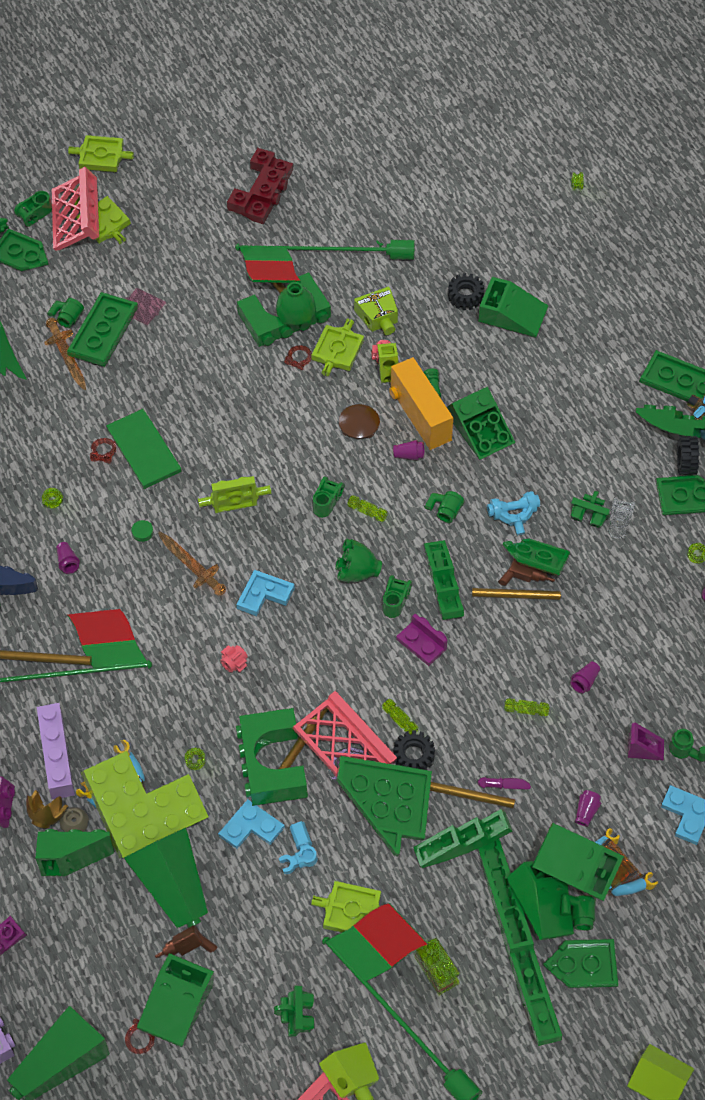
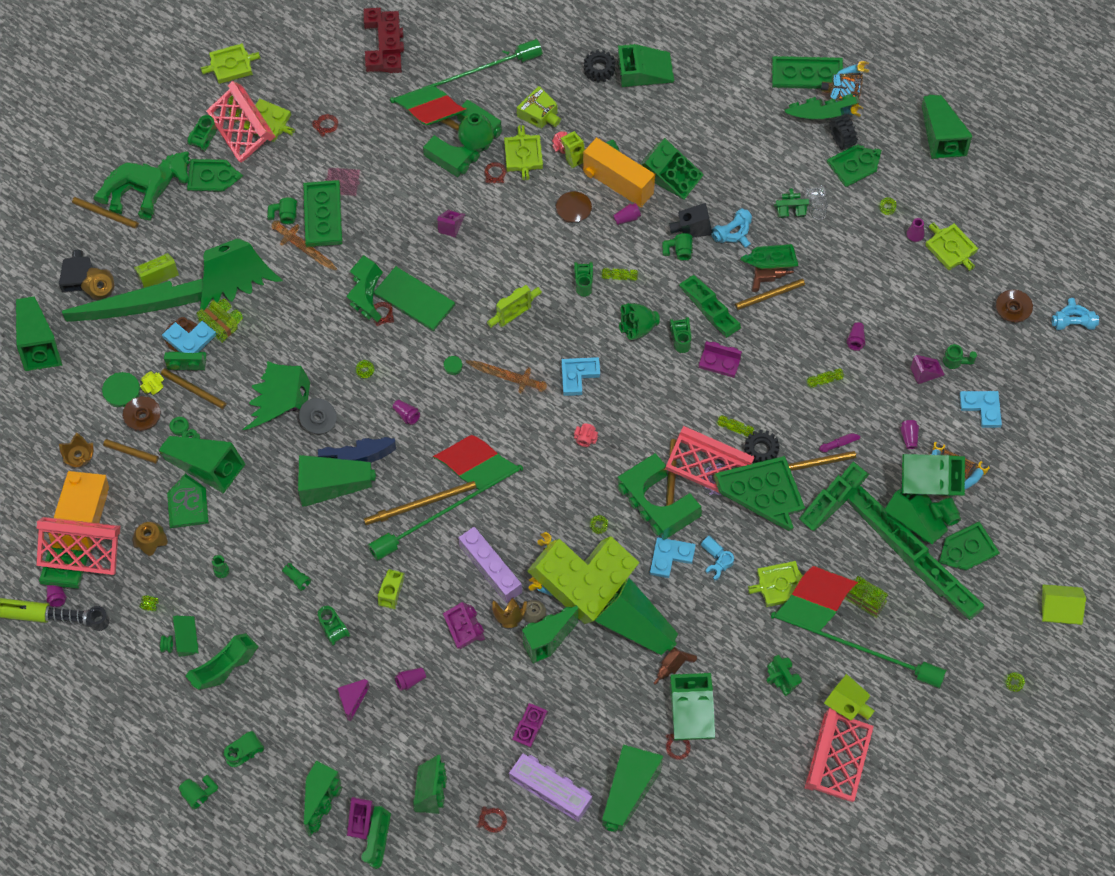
camera: 25 degrees left, 5 degrees up
(90, 423) = (361, 296): none -> green arch
(151, 250) = (316, 124): none -> clear red piece
(222, 386) = (450, 222): none -> magenta slope
(473, 484) = (693, 222): none -> black torso

